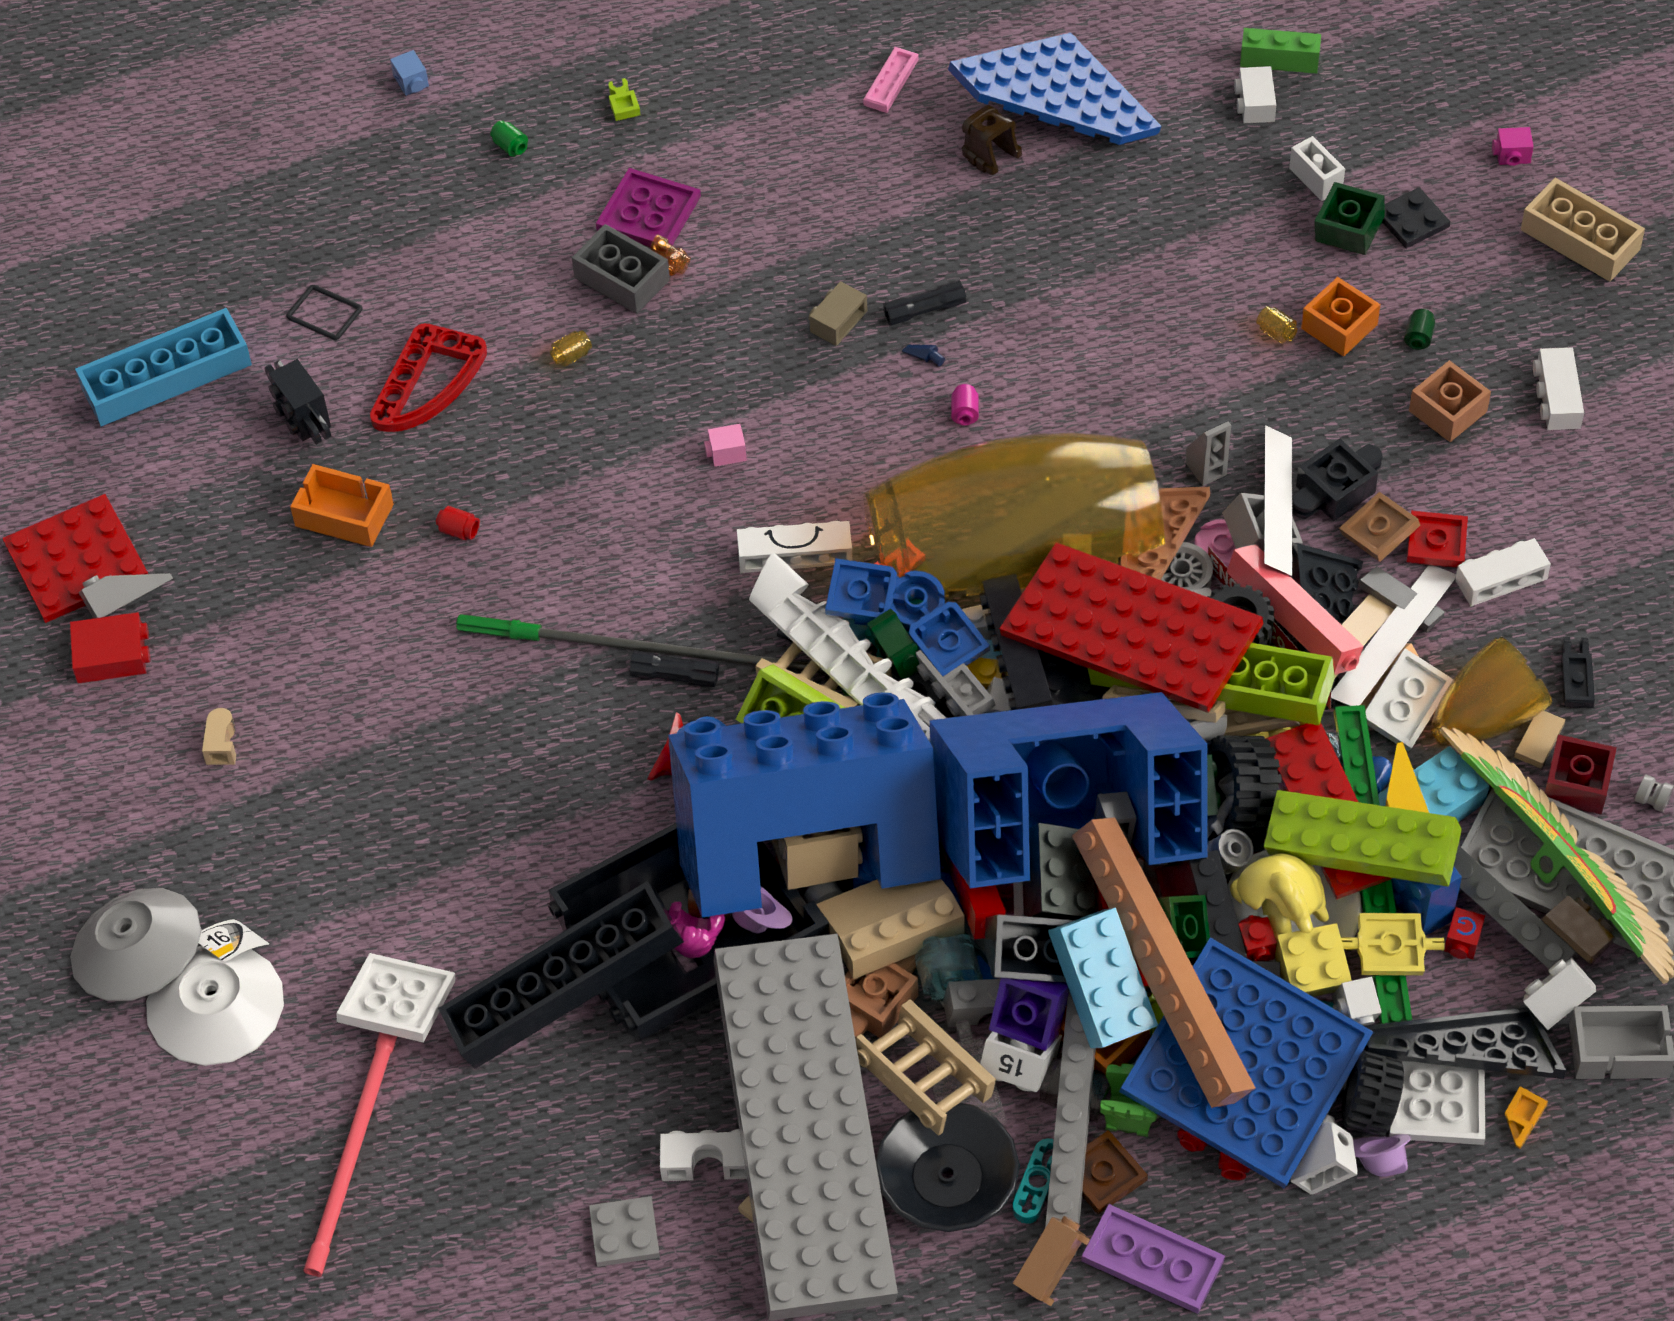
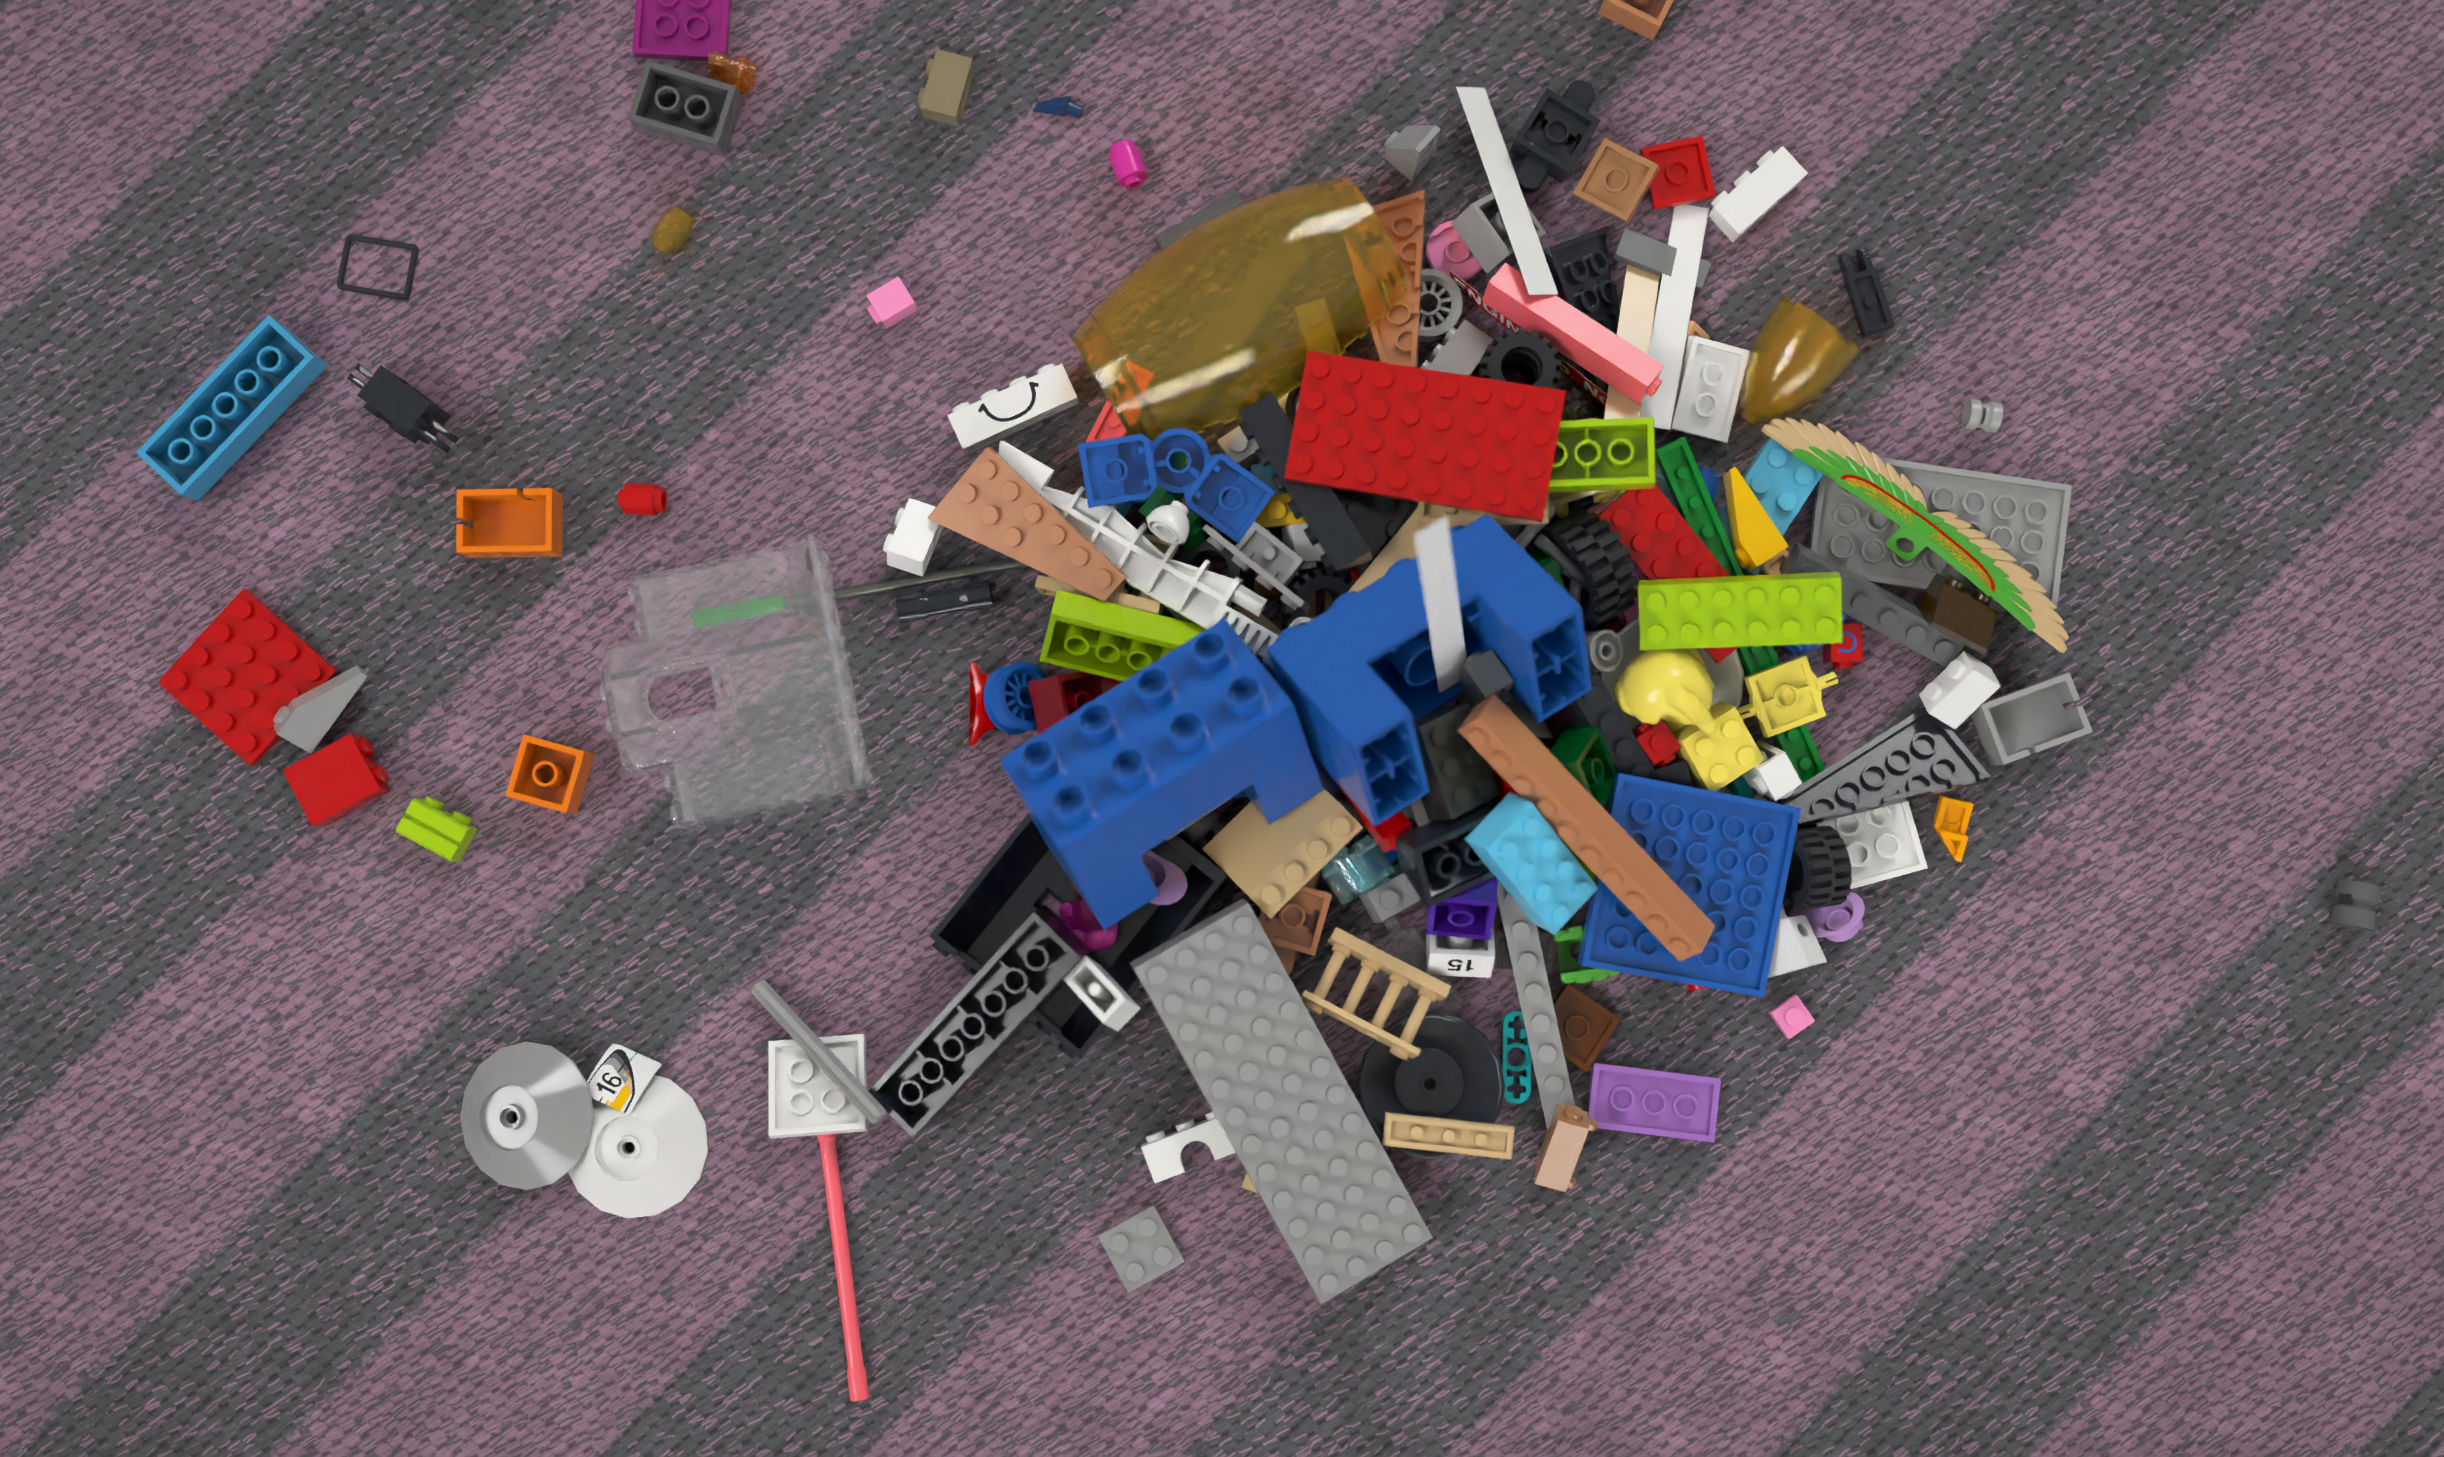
camera: 25 degrees left, 30 degrees up
(171, 707) = (437, 829): none -> lime brick
(217, 745) = (501, 846): tan leg -> none
(285, 692) = (549, 774): none -> orange brick
(410, 968) = (819, 1052): none -> light grey axle
(432, 343) = (511, 310): red beam -> none
(499, 705) = (789, 706): none -> clear panel
(671, 610) = (913, 539): none -> white brick
(678, 970) = (1101, 993): none -> white brick
(762, 612) = (1013, 518): none -> nougat wing
(888, 636) = (1170, 522): none -> white brick
(942, 297) = (1018, 55): black axle -> none
(946, 1207) = (1448, 1135): none -> tan tile
(1089, 712) = (1441, 602): none -> white sticker
(1222, 767) = (1564, 561): none -> dark grey bar
(1313, 1230) = (1791, 1016): none -> bright pink plate
(1539, 739) = (1849, 388): tan tile -> none
(1580, 773) = (1906, 421): dark red brick -> none

